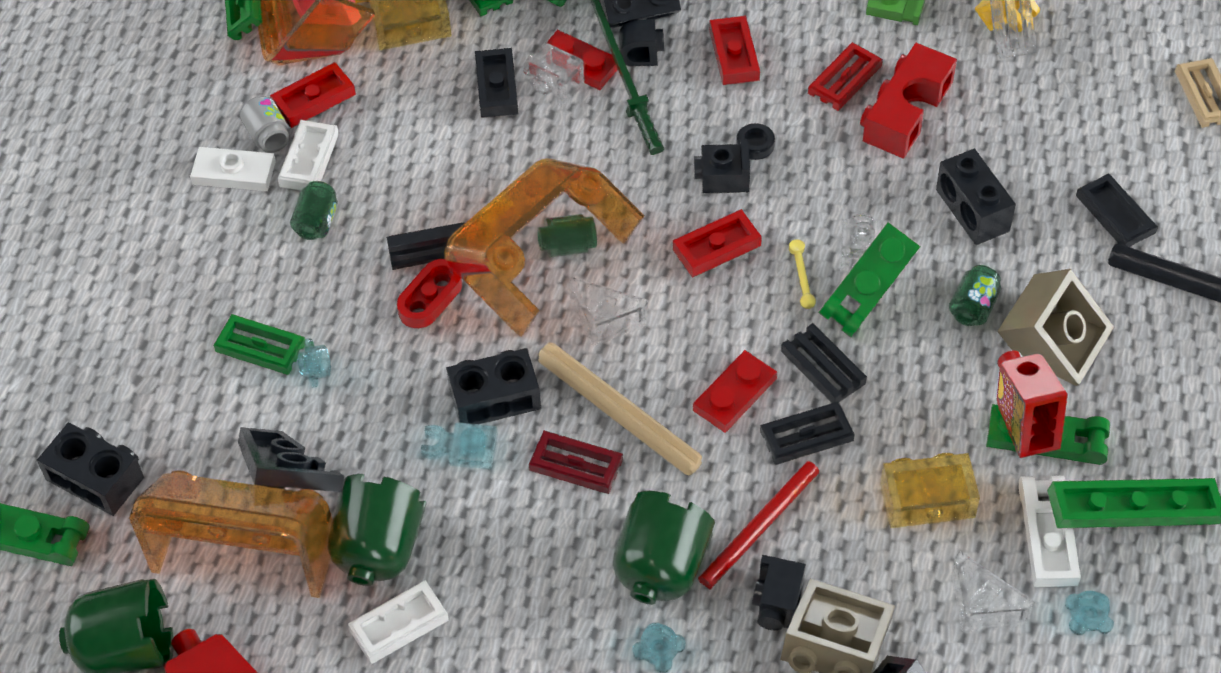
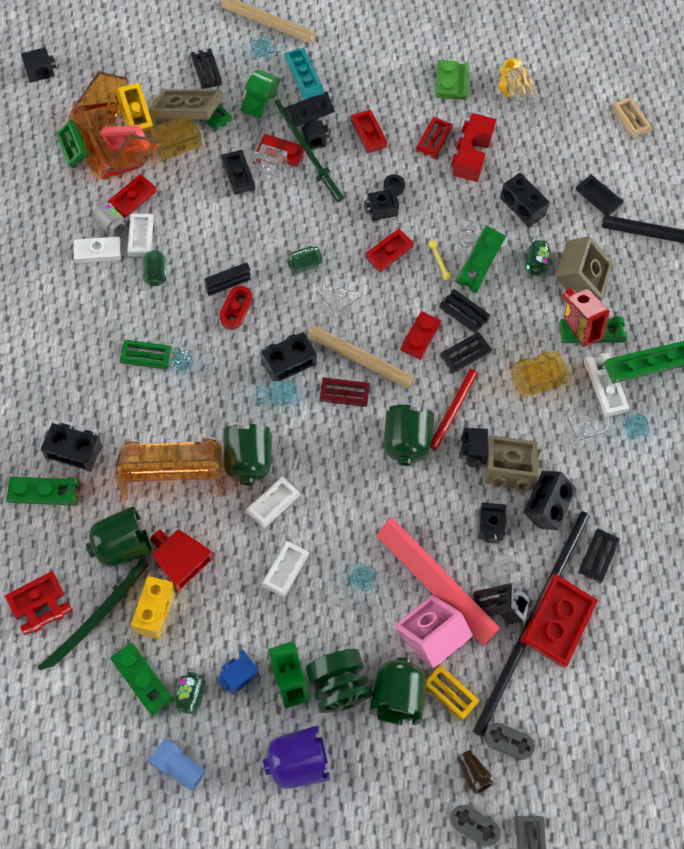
camera: 20 degrees left, 10 degrees up
(280, 462) = (183, 426): black wing -> none
(484, 246) = (264, 273): clear orange windscreen -> none
(663, 635) = (418, 481): clear light blue plate -> none

